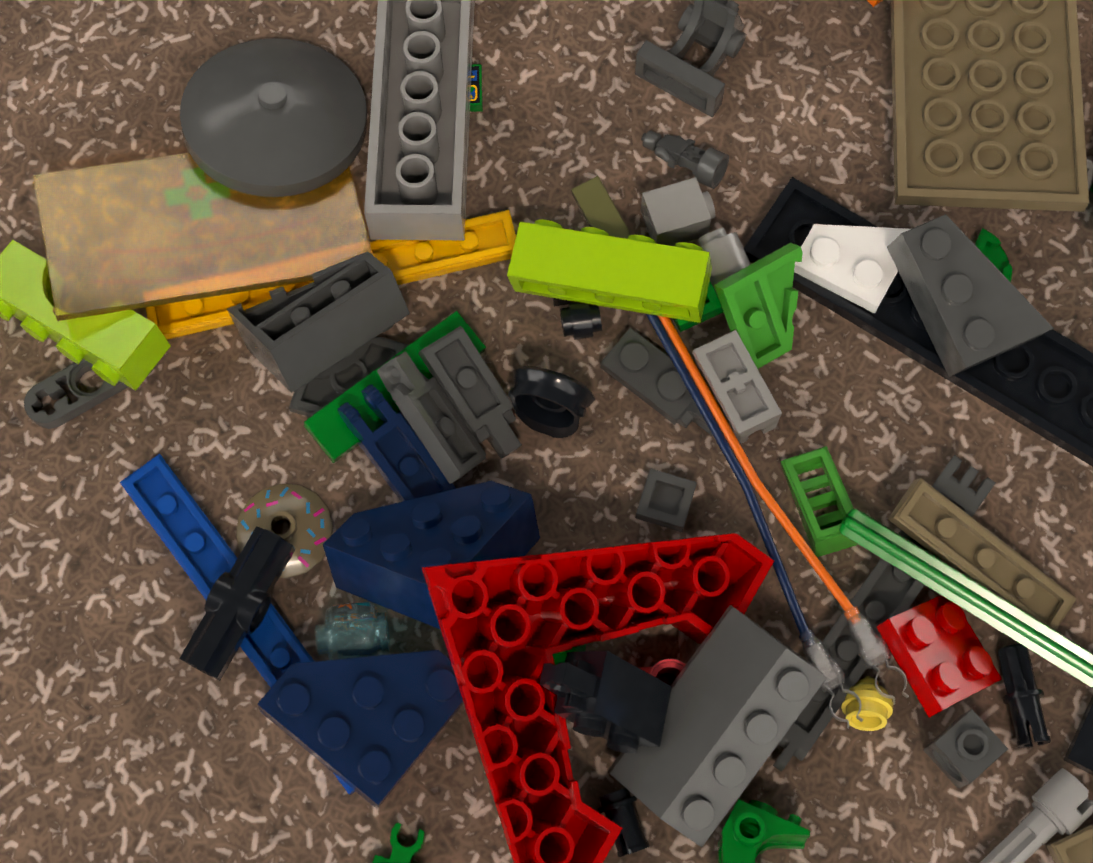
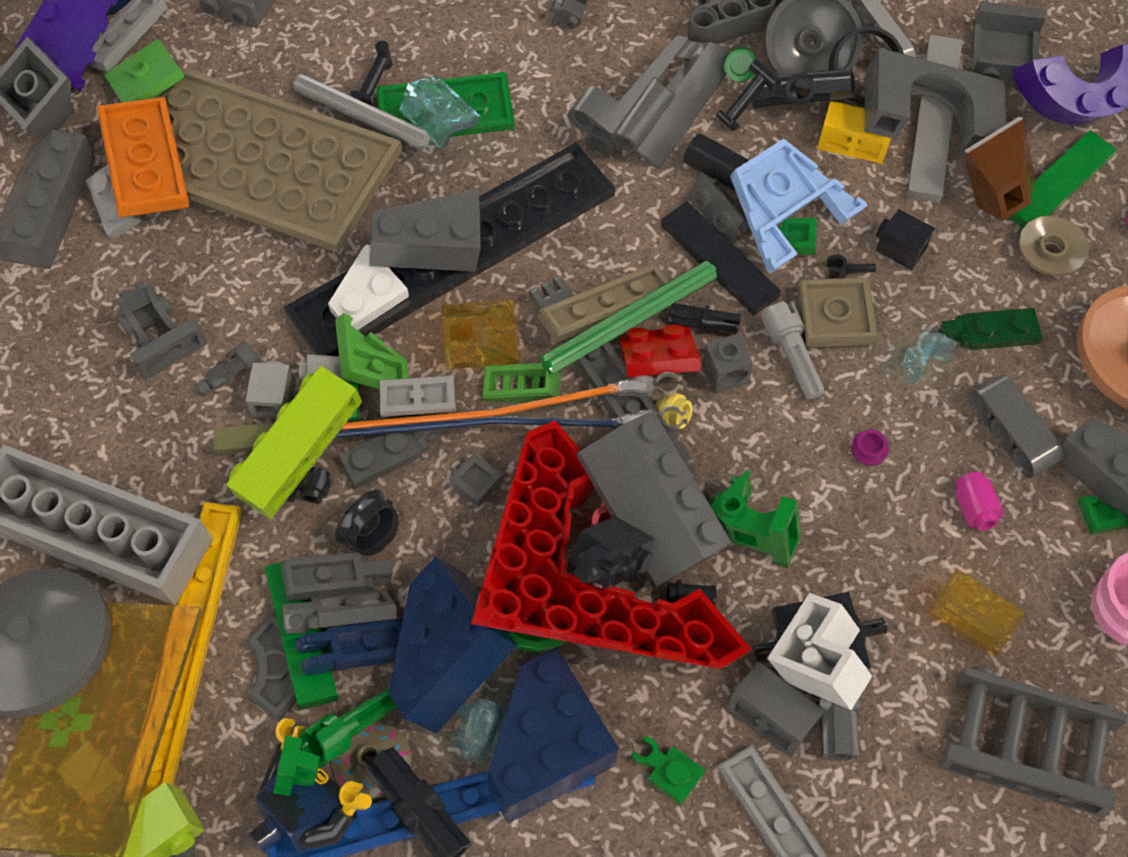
camera: 70 degrees left, 10 degrees down
(200, 473) = (311, 814): none -> torso
(219, 448) = (295, 767): none -> green tile
(275, 474) = (333, 735): none -> green piece
(323, 321) = (224, 664): dark grey wedge -> none
(866, 418) = (479, 334): none -> clear yellow slope

